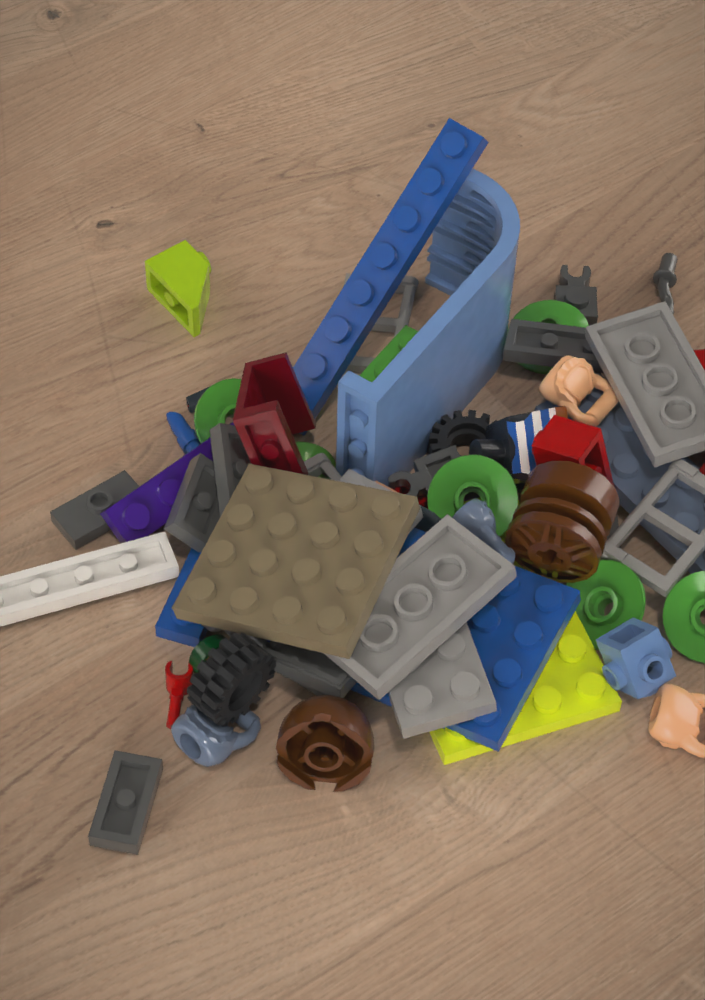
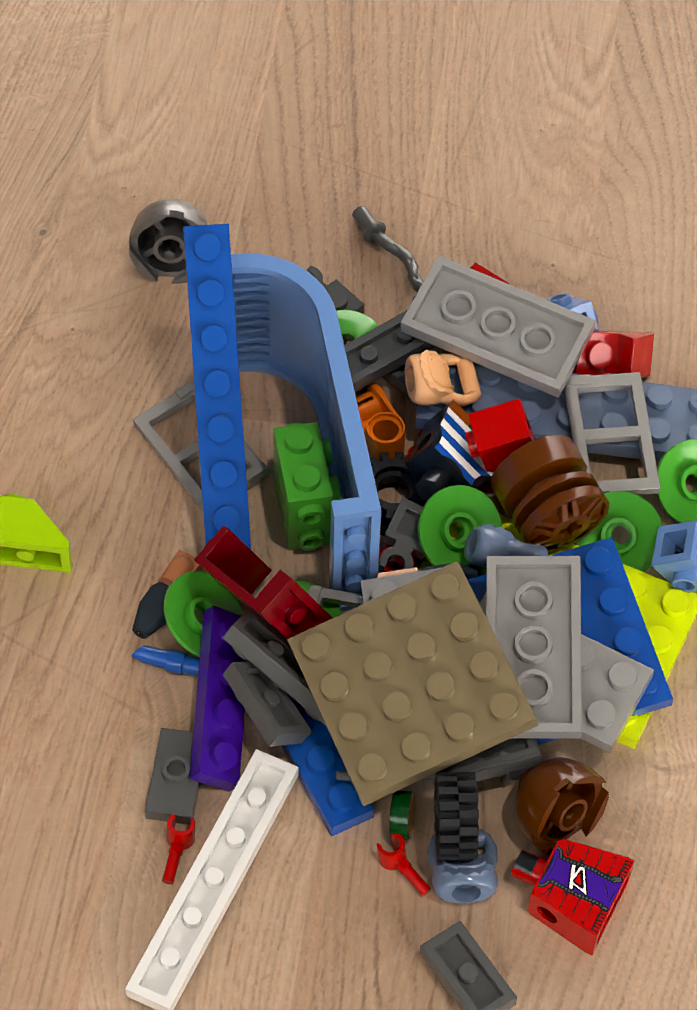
camera: 45 degrees left, 5 degrees up
(54, 550) = (178, 842): none -> red hand
(272, 815) = (575, 889): none -> red torso
(508, 390) = (381, 424): none -> orange piece
(512, 169) = (158, 238): none -> flat silver cylinder

